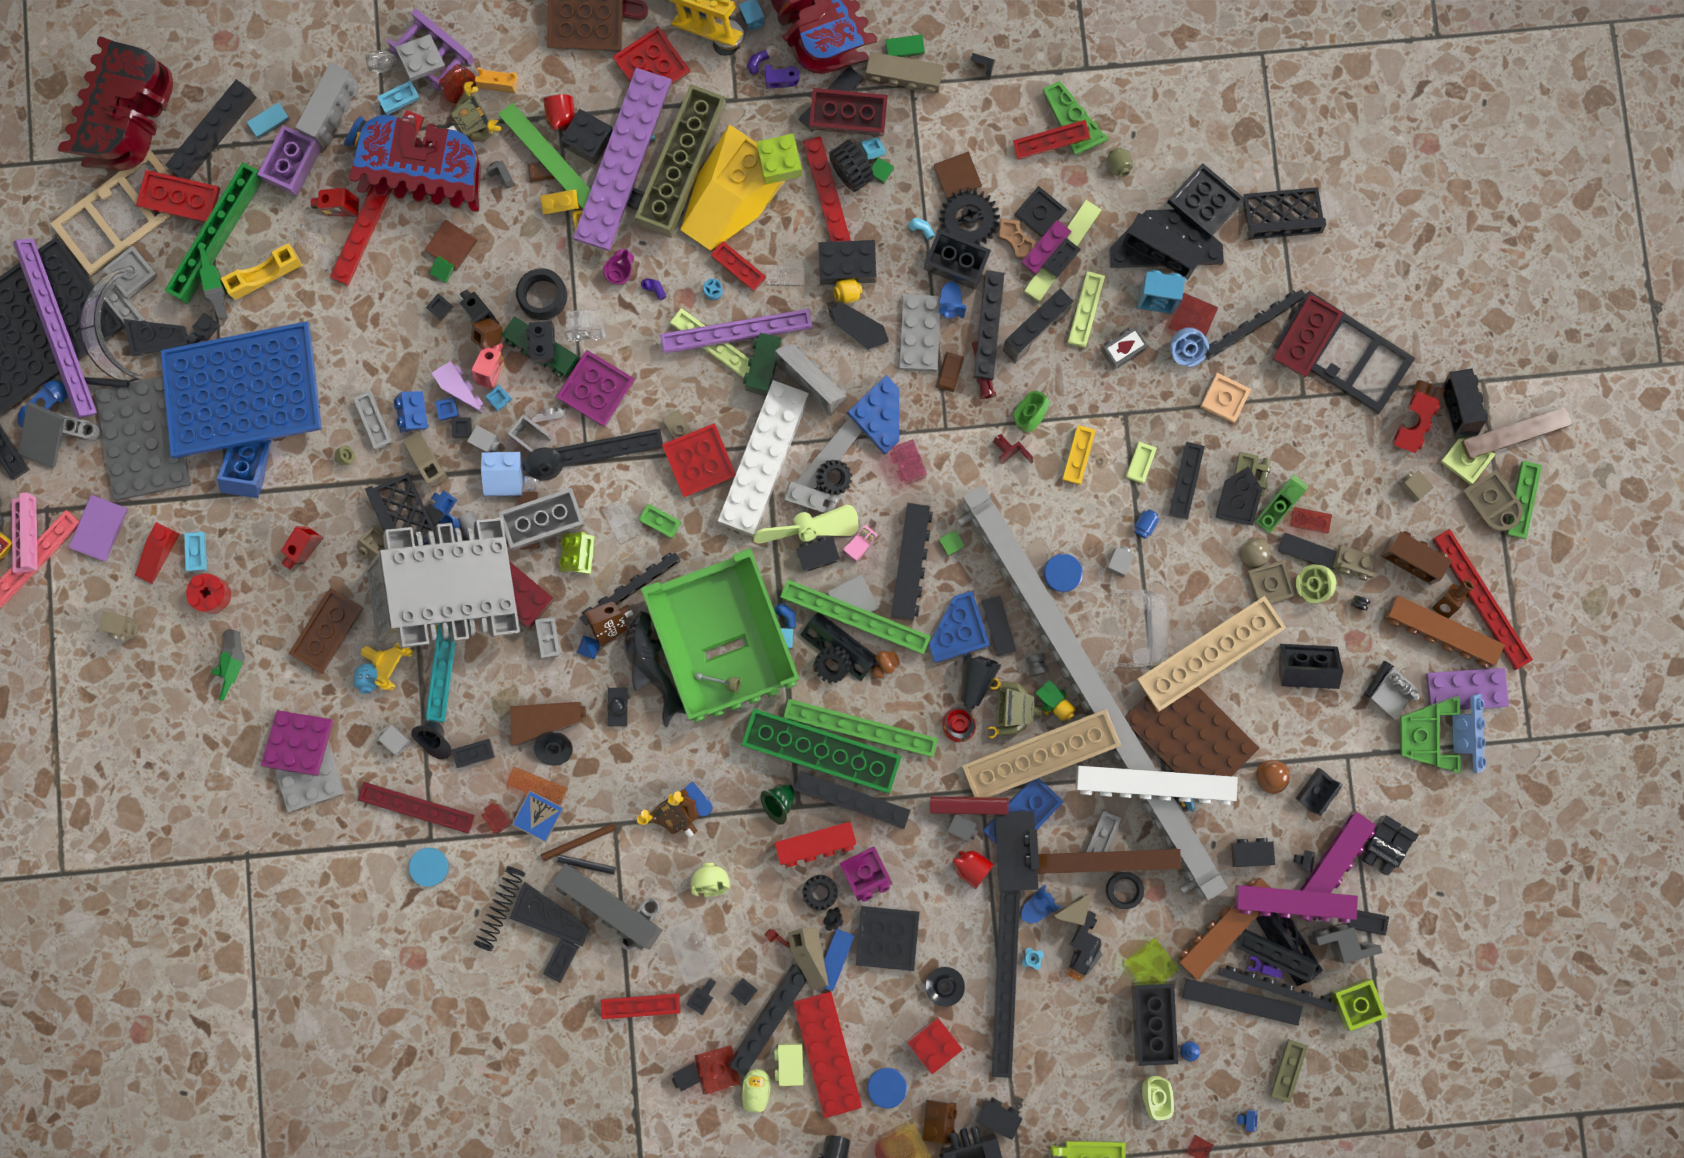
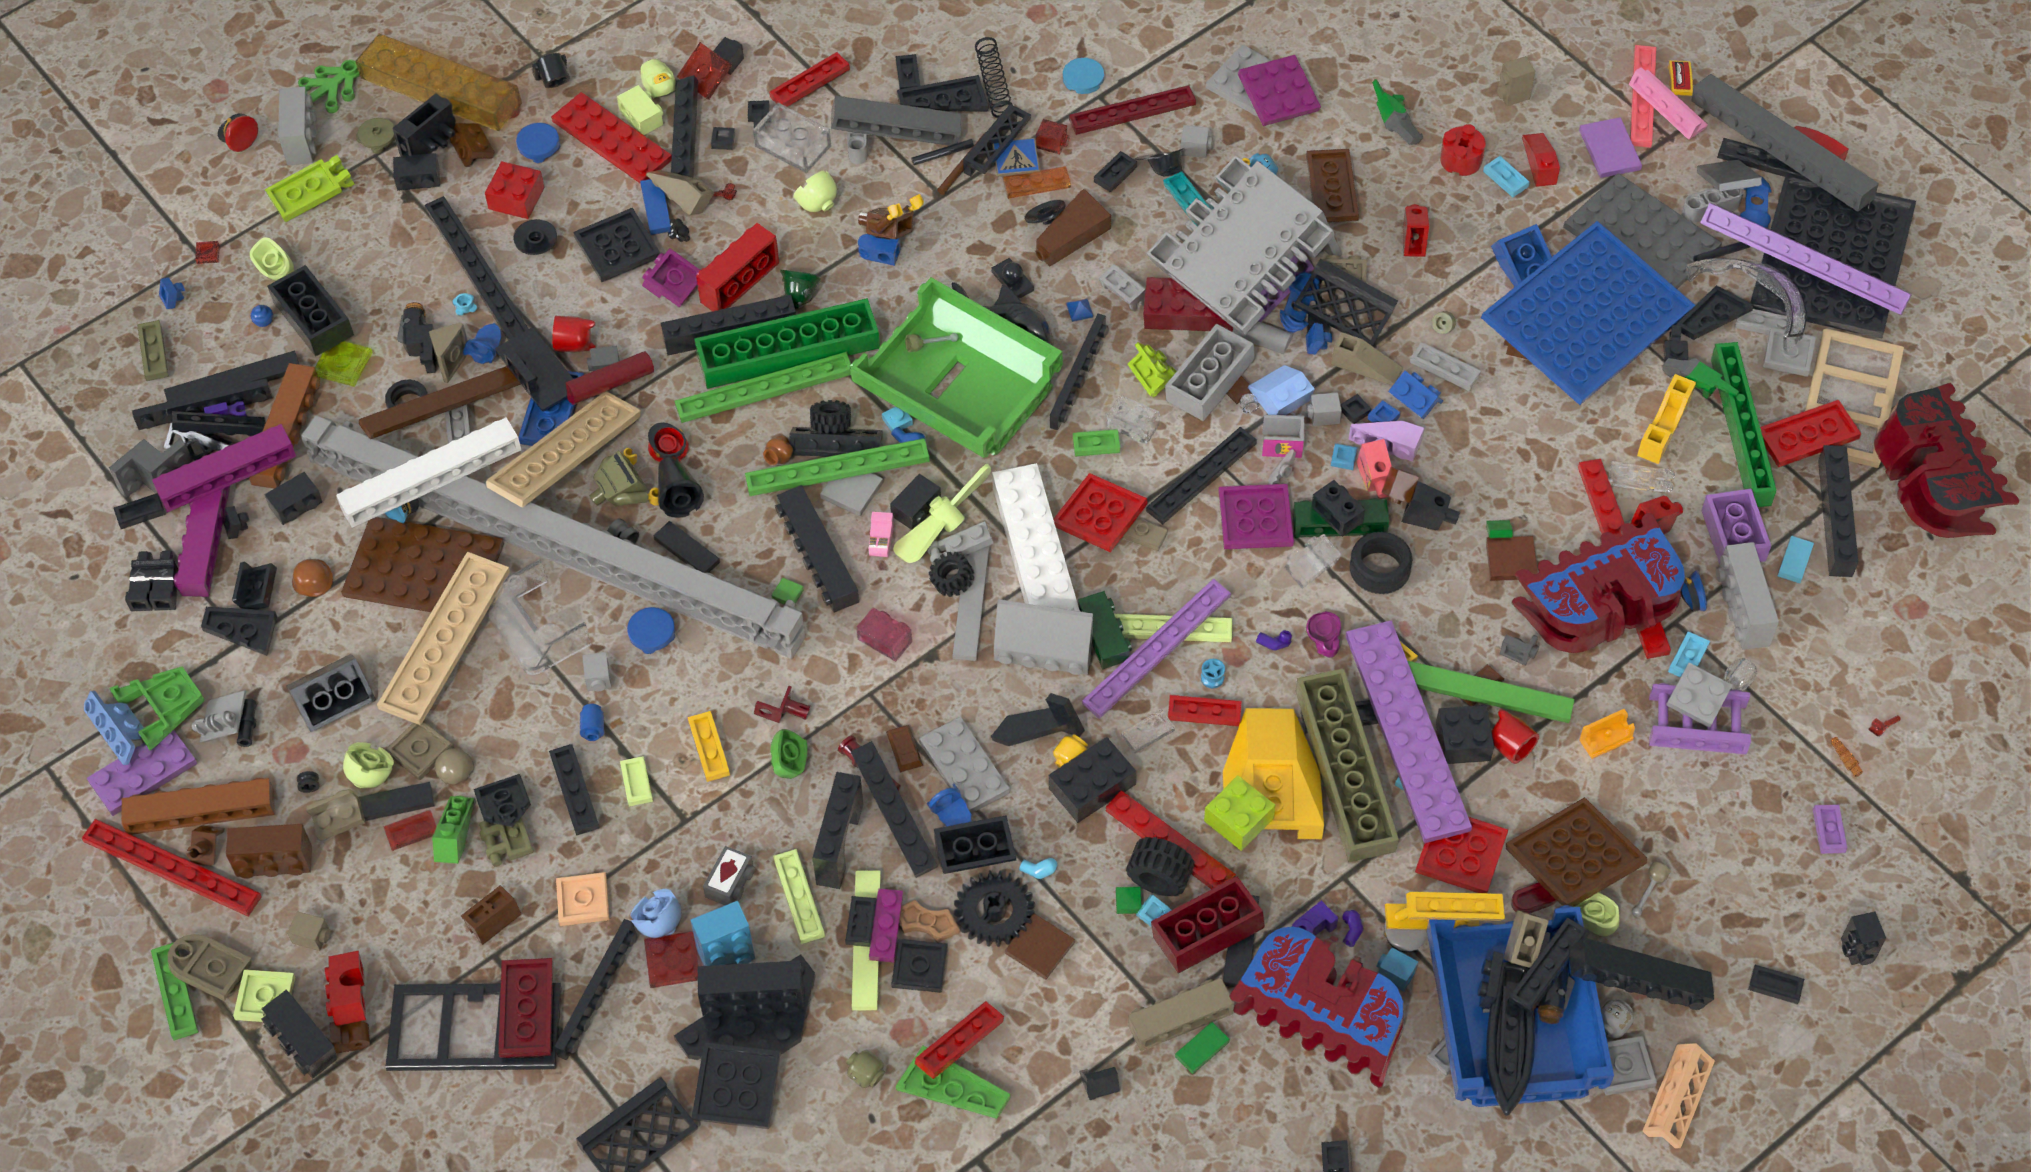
camera: 145 degrees right, 25 degrees down
(439, 307) = (1471, 495): black plate -> none
(453, 83) = (1640, 697): clear red tile -> none
(471, 117) = (1595, 679): olive torso -> none
(544, 458) = (1247, 419): black dish -> none
(548, 845) = (995, 134): none -> black fence
(559, 202) = (1437, 654): yellow plate -> none
(608, 621) = (1076, 327): reddish brown torso -> none
(808, 892) = (704, 234): black tyre -> none
(879, 414) = (949, 659): plate -> none
(959, 629) = (724, 520): blue plate -> none
(1055, 701) = (582, 509): green piece -> none
(1293, 421) = (491, 914): none -> reddish brown hinge
(1342, 763) = (241, 626): none -> black wing
(1358, 1004) = (110, 431): lime brick -> none
(1516, 433) = (216, 1055): tile -> none

